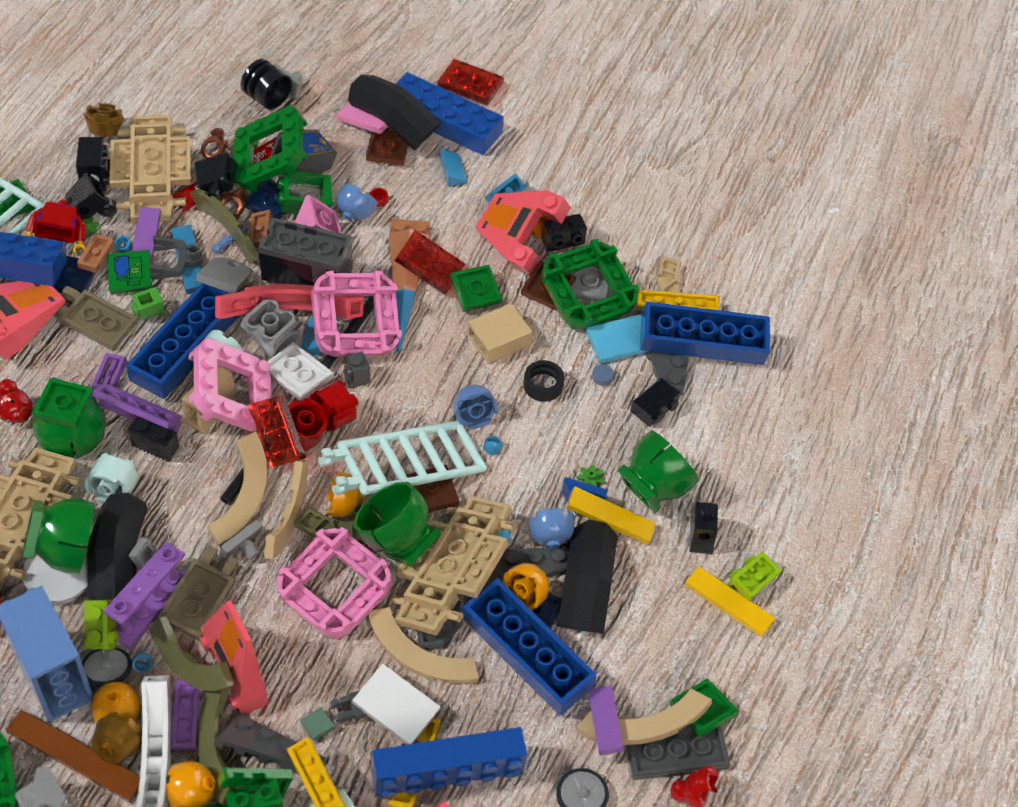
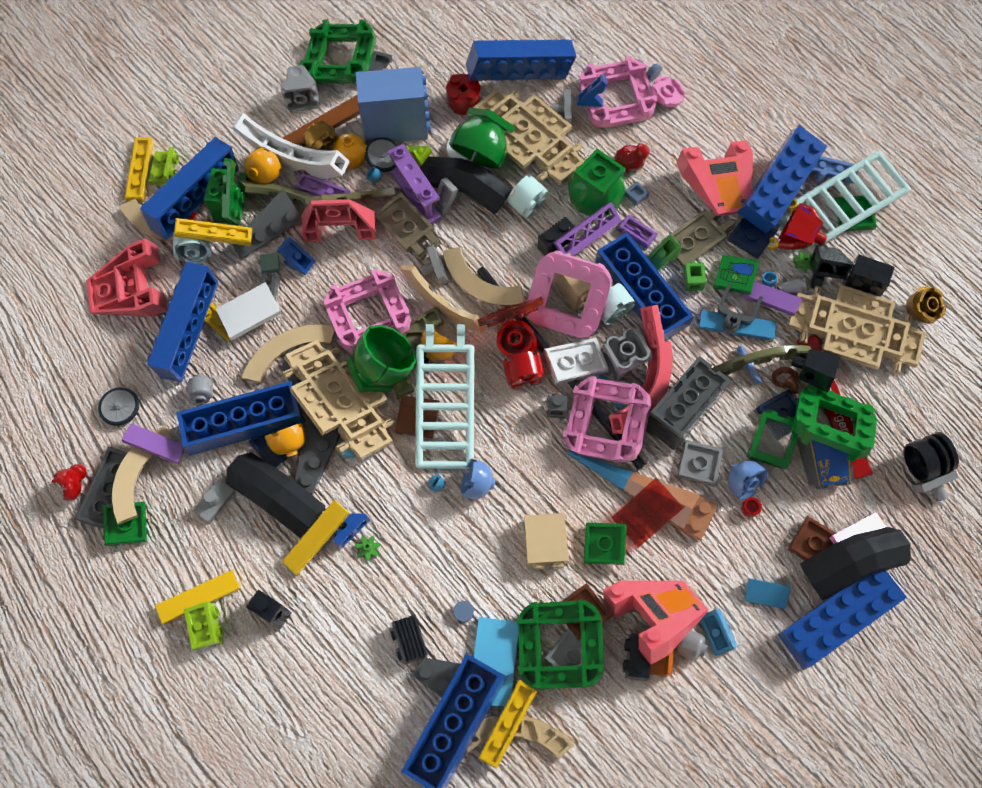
camera: 120 degrees right, 15 degrees up
(95, 253) = (763, 253): nougat plate -> none
(123, 224) = (793, 286): none -> light grey cone
(131, 332) = (665, 252): none -> bright green slope
(217, 136) = (875, 395): copper piece -> none
(224, 274) = (697, 336): light grey tile -> none
(259, 225) = (747, 390): nougat plate -> none
(298, 695) = (295, 256): none -> blue slope
(318, 215) = (726, 432): bright pink slope -> none
(362, 245) = (700, 463): none -> light grey tile
(470, 81) = (883, 666): clear red plate -> none
(516, 711) = (200, 389): none -> light grey head
(548, 368) = (479, 538): black tyre -> none
(552, 527) = (327, 483): medium blue cylinder -> none
(628, 636) = (214, 501): none -> light grey tile
(657, 472) = (328, 592): green plate -> none

